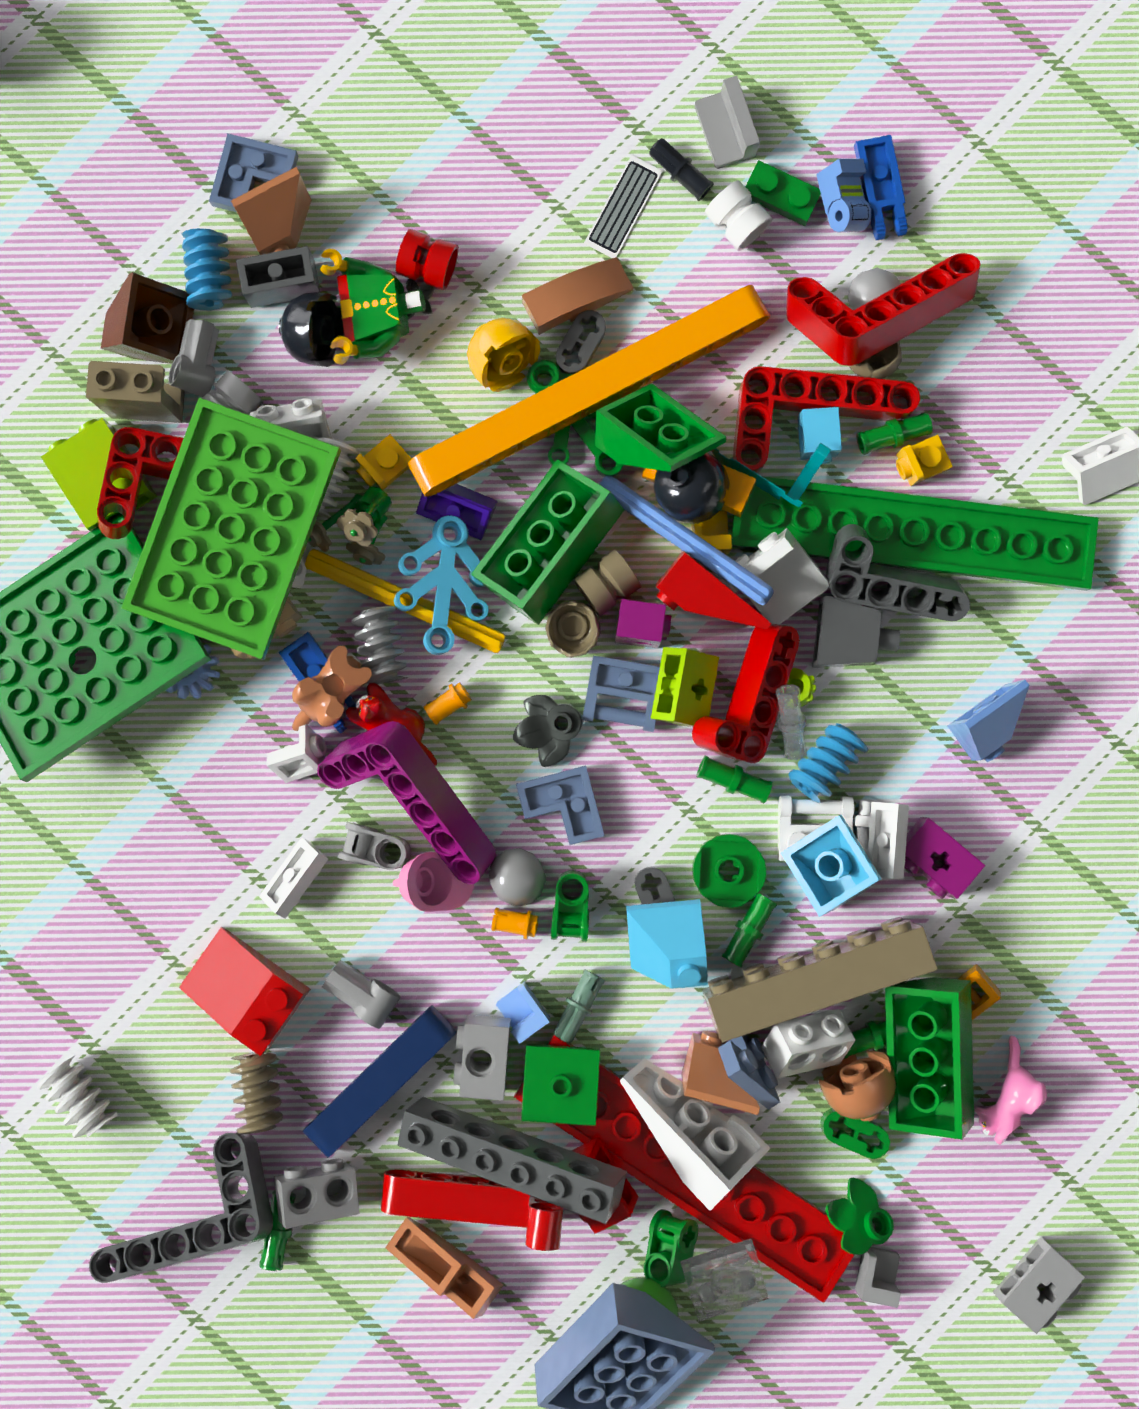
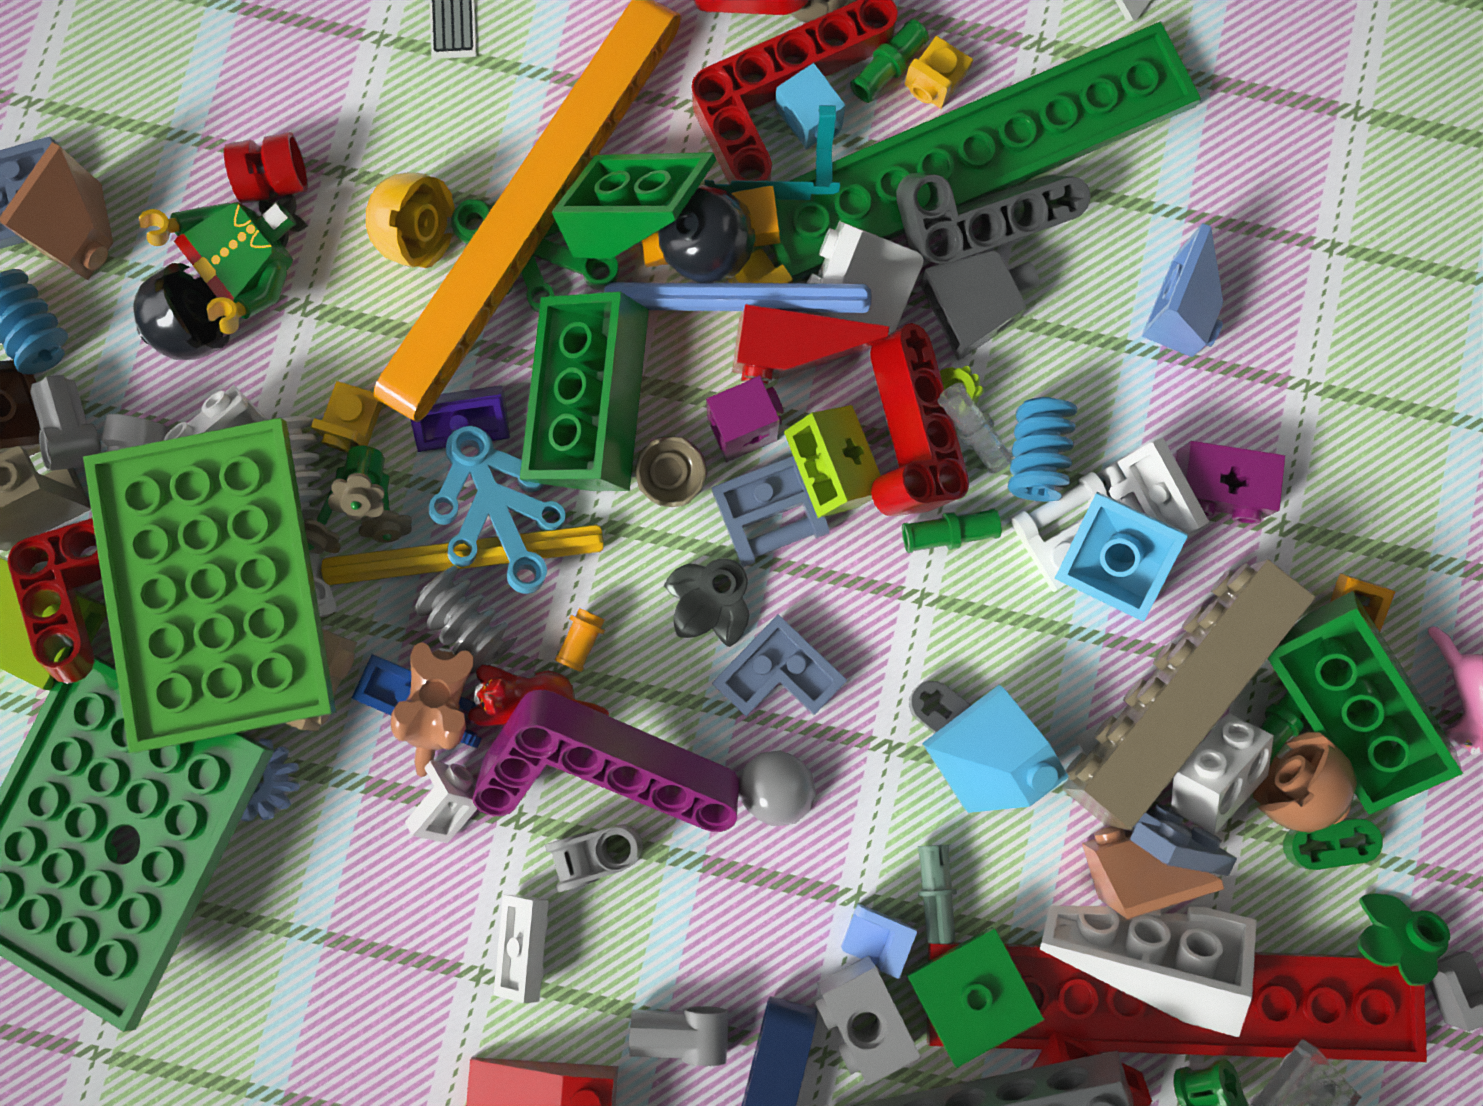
camera: 35 degrees left, 5 degrees down
(277, 276) = (104, 280): dark grey brick -> none
(431, 885) = (684, 856): bright pink piece -> none
(515, 922) = (807, 841): light orange pin -> none
(571, 909) = (861, 787): green piece -> none
(573, 339) = (481, 162): dark grey beam -> none
(576, 292) = (453, 113): nougat slope -> none
(607, 582) = (681, 391): dark tan wheel -> none
(742, 885) = (998, 660): green plate -> none
(749, 930) = (1072, 687): green pin -> none

